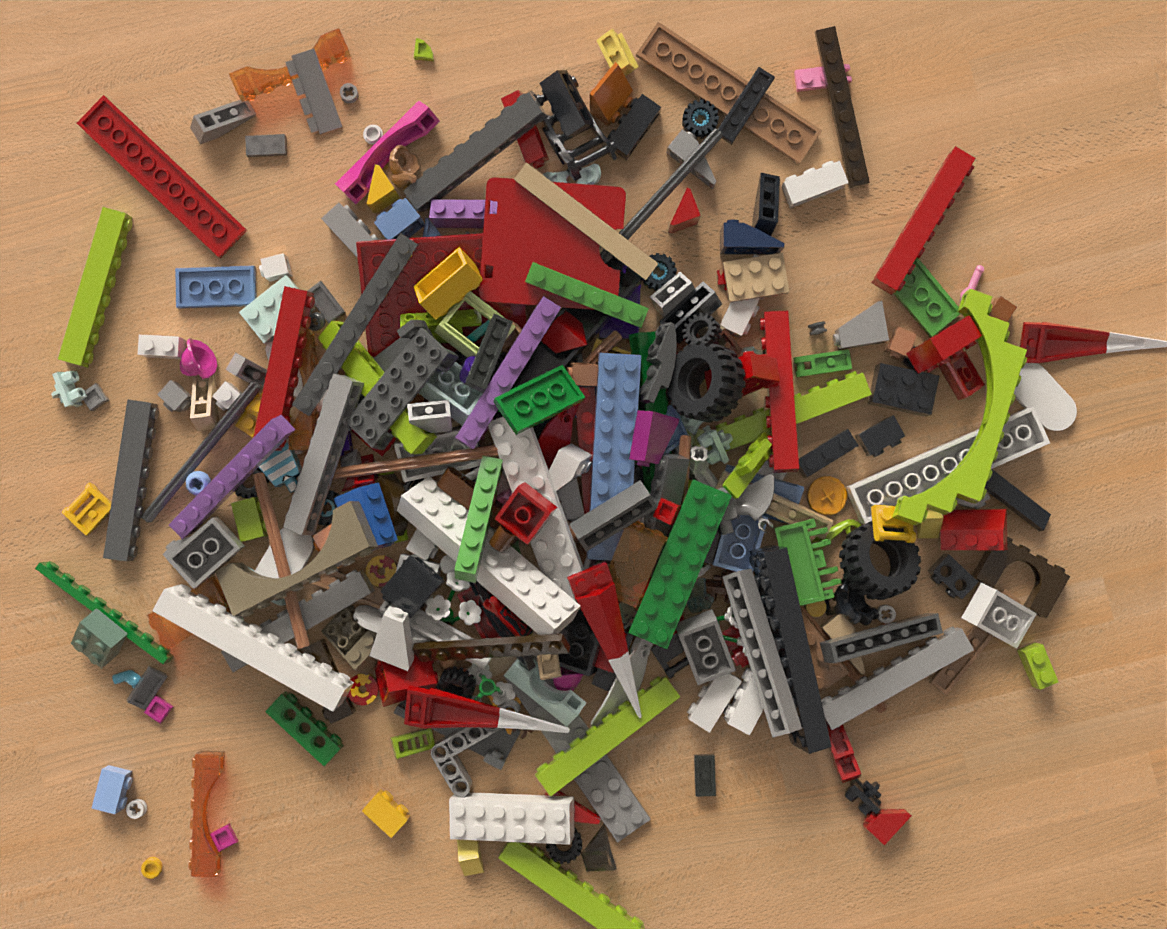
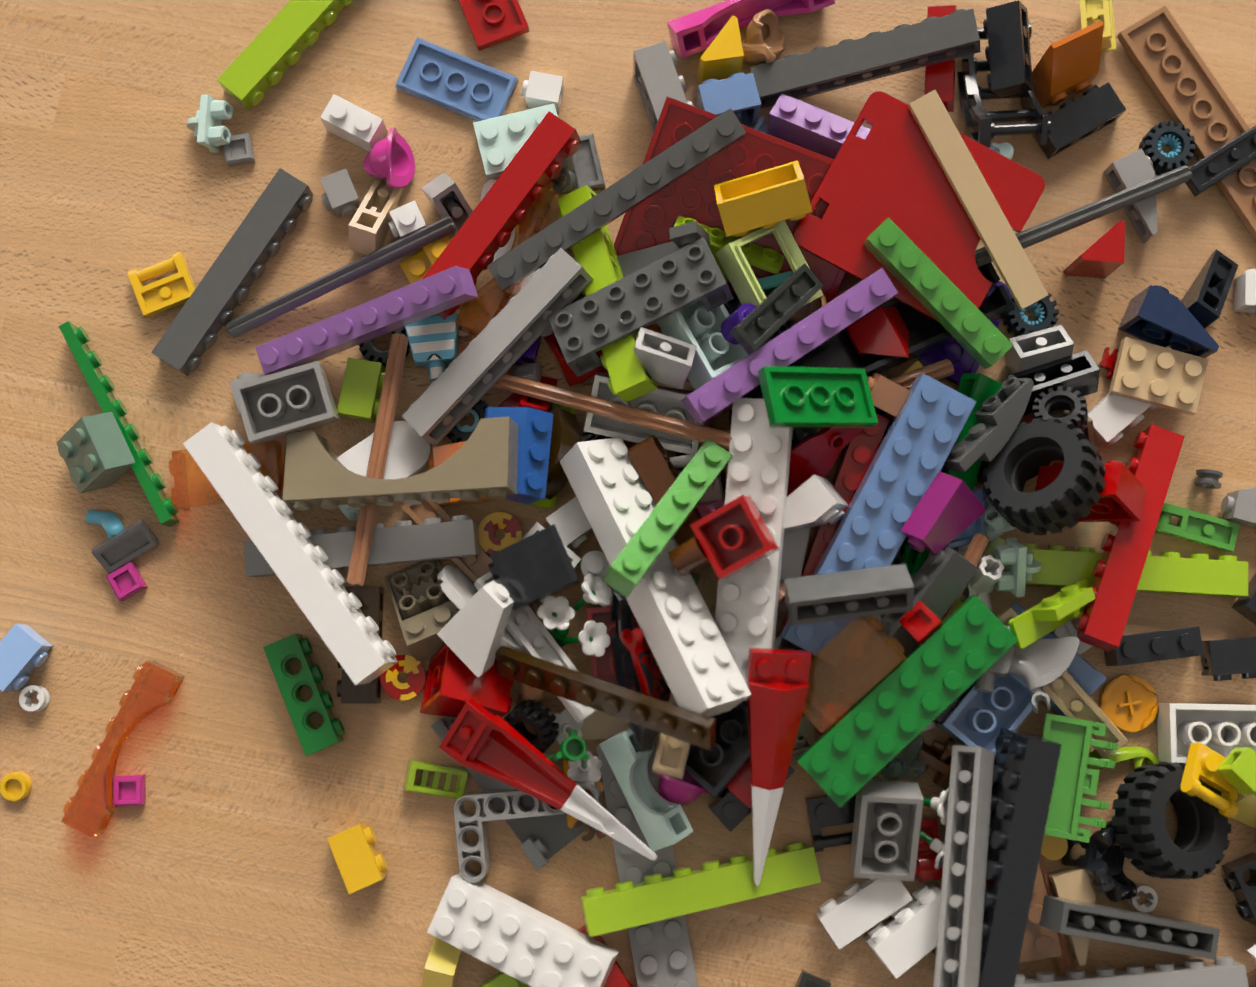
camera: 15 degrees right, 5 degrees down
(197, 482) = (316, 310): light blue piece -> none
(638, 657) = (740, 838): white plant -> none

